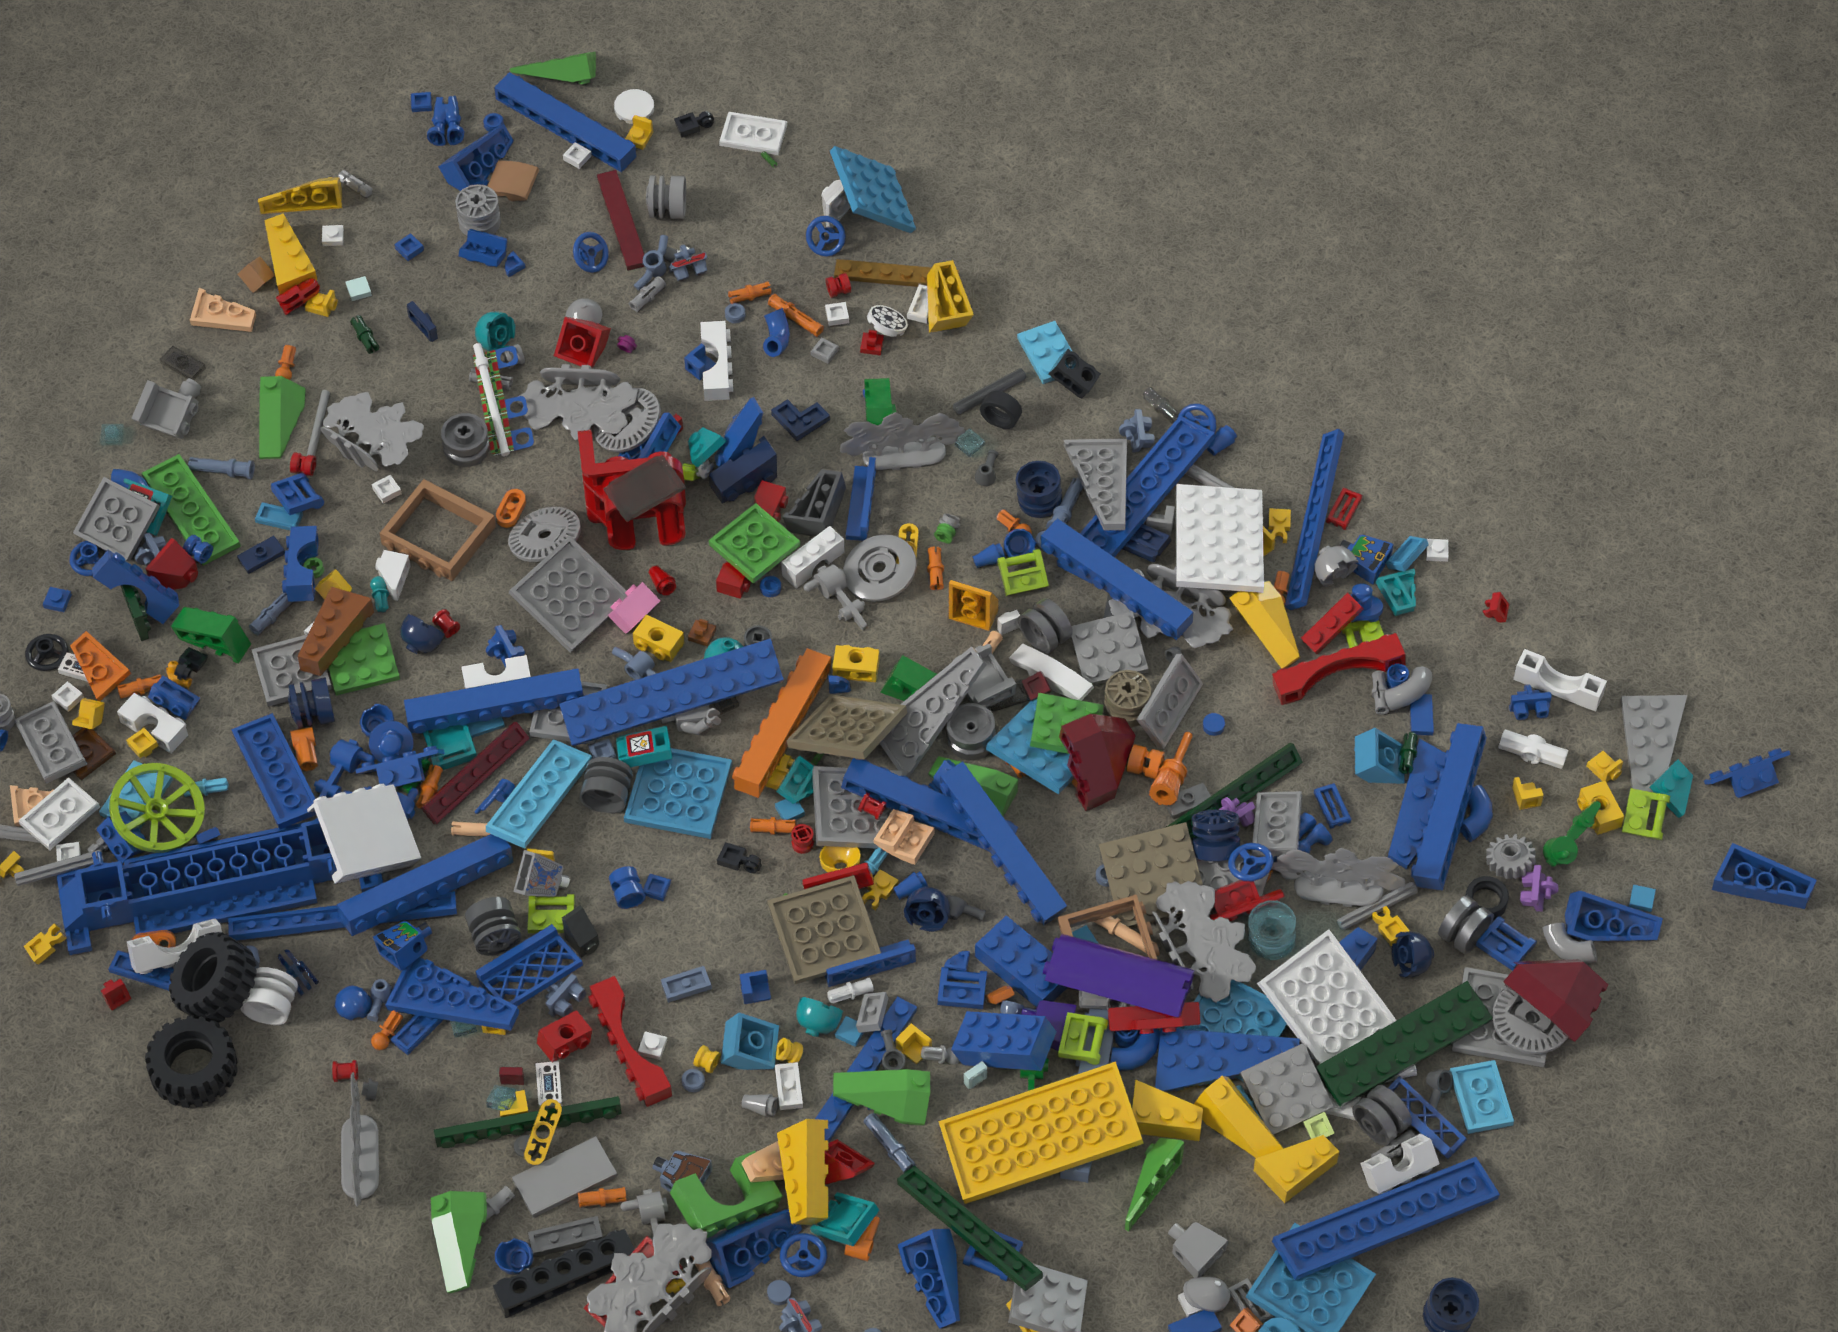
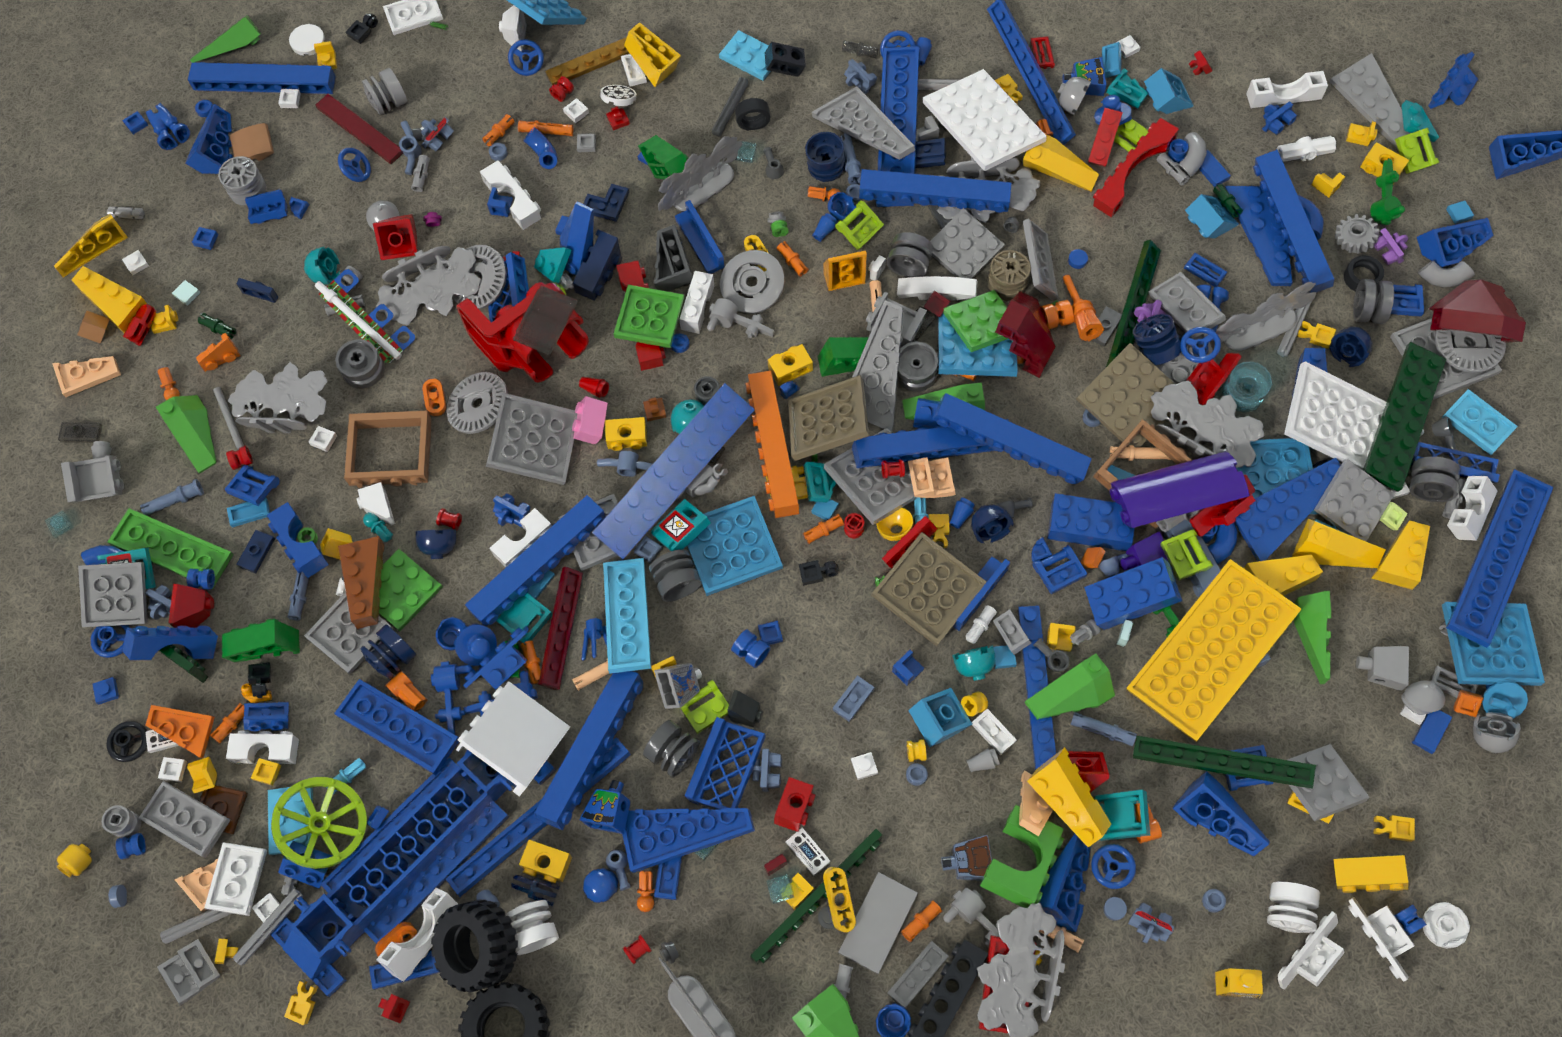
camera: 30 degrees left, 10 degrees up
(316, 944) = (536, 852): none -> yellow brick
(347, 360) = (218, 354): none -> orange wing
(649, 1078) = (886, 797): red arch -> none
(1438, 616) = (1167, 92): none -> dark azure slope

